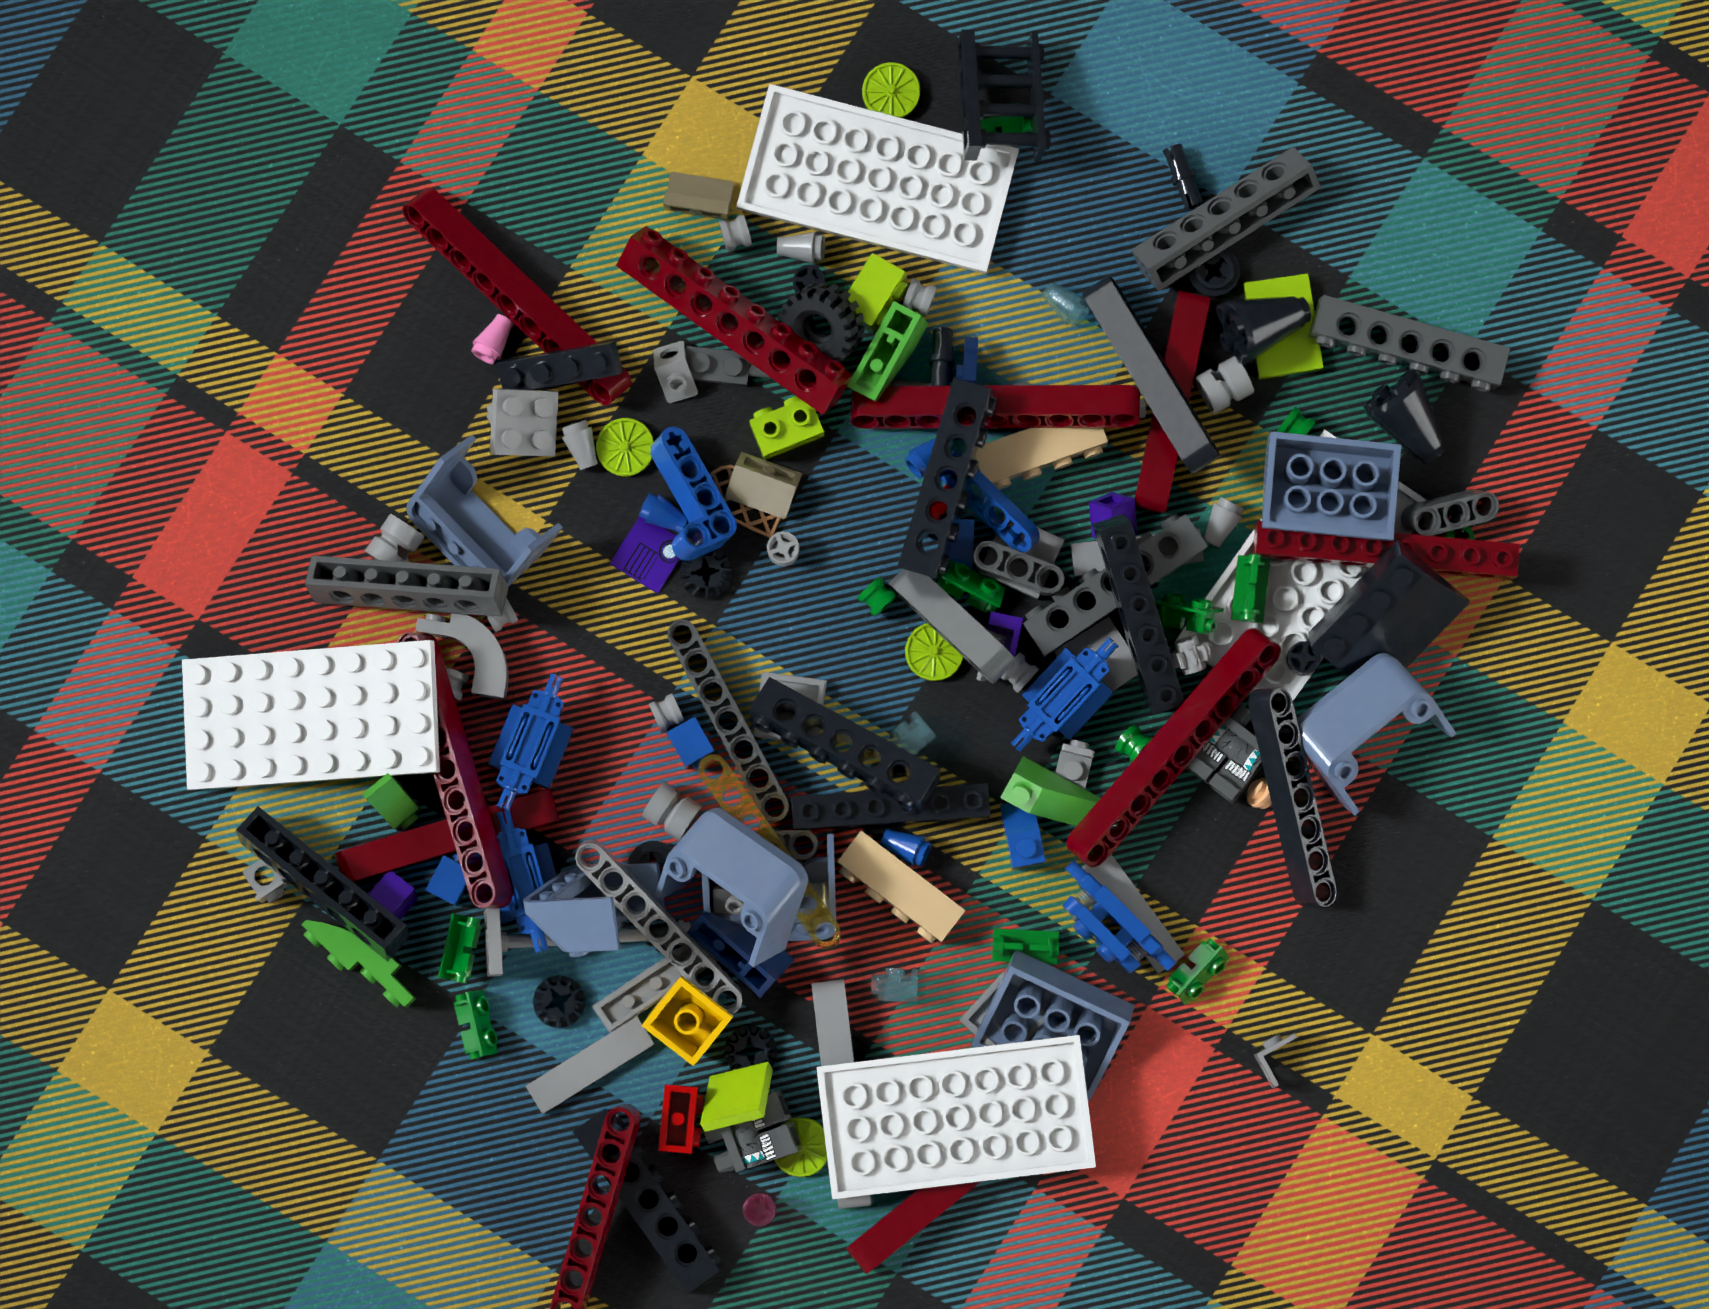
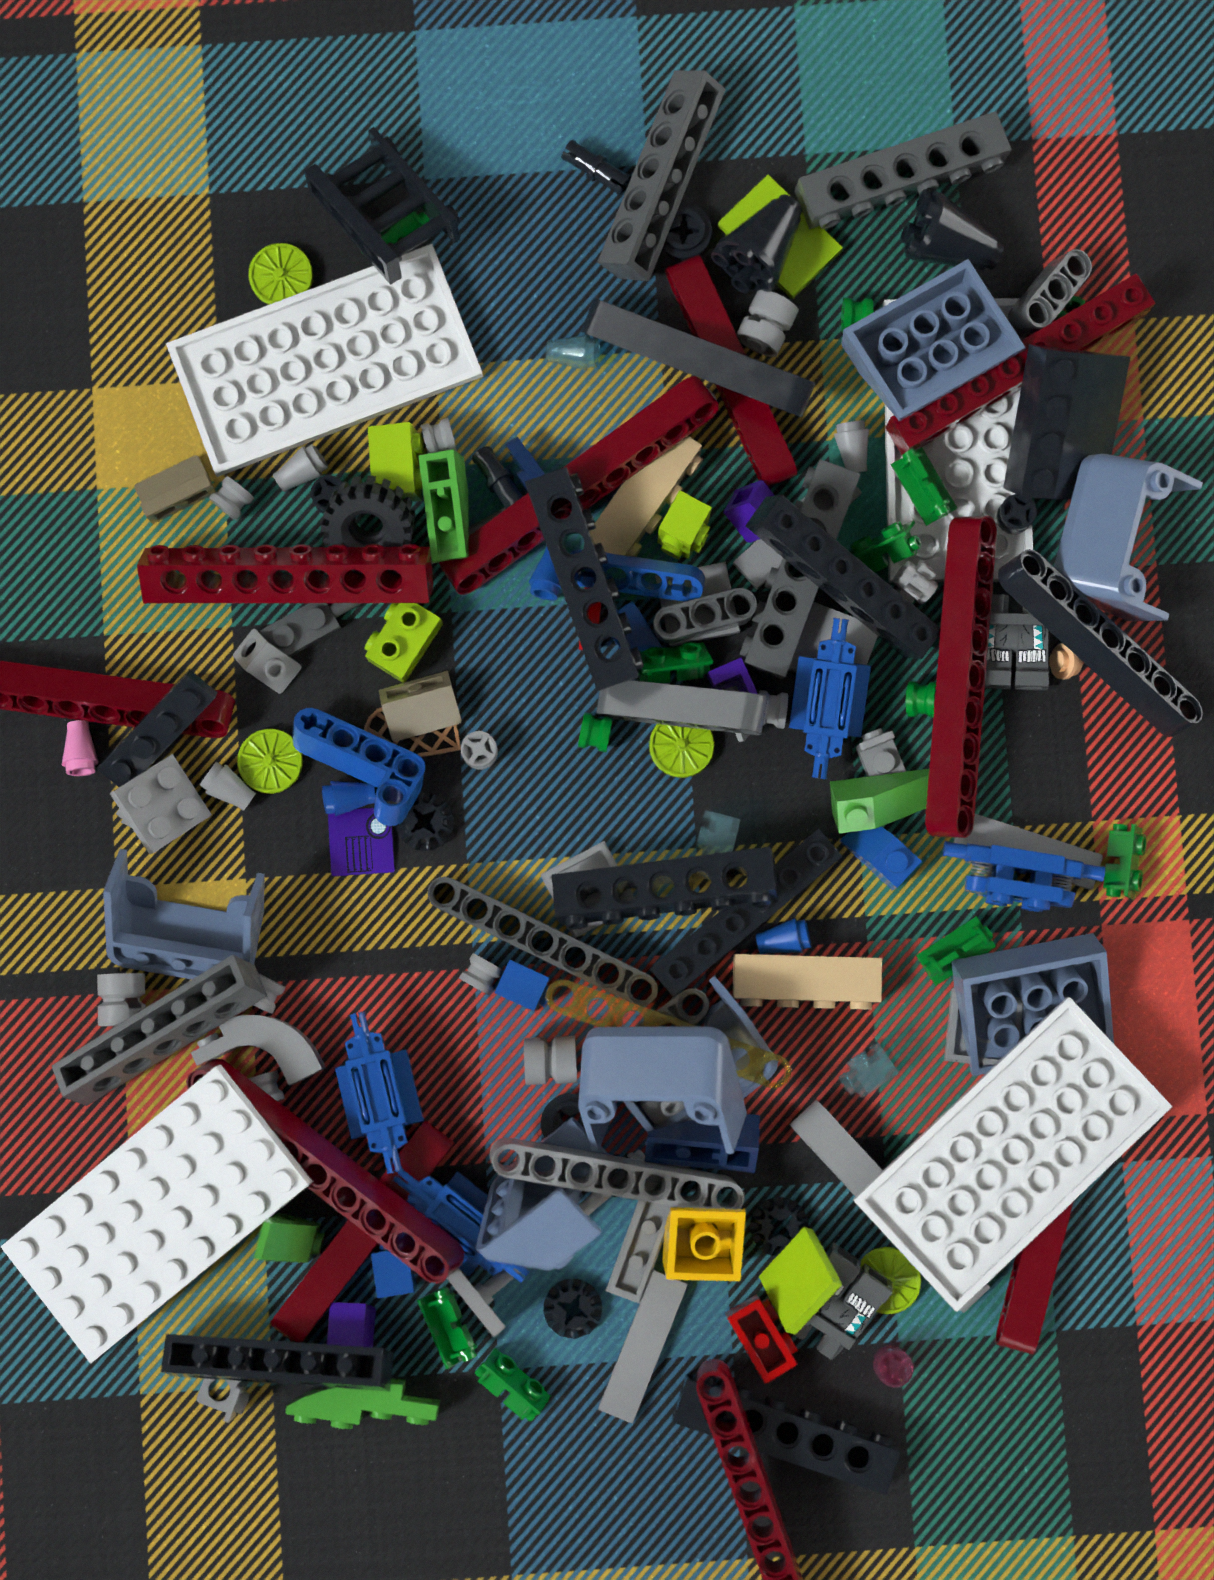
camera: 35 degrees left, 0 degrees up
(1051, 493) = (684, 526): none -> lime brick

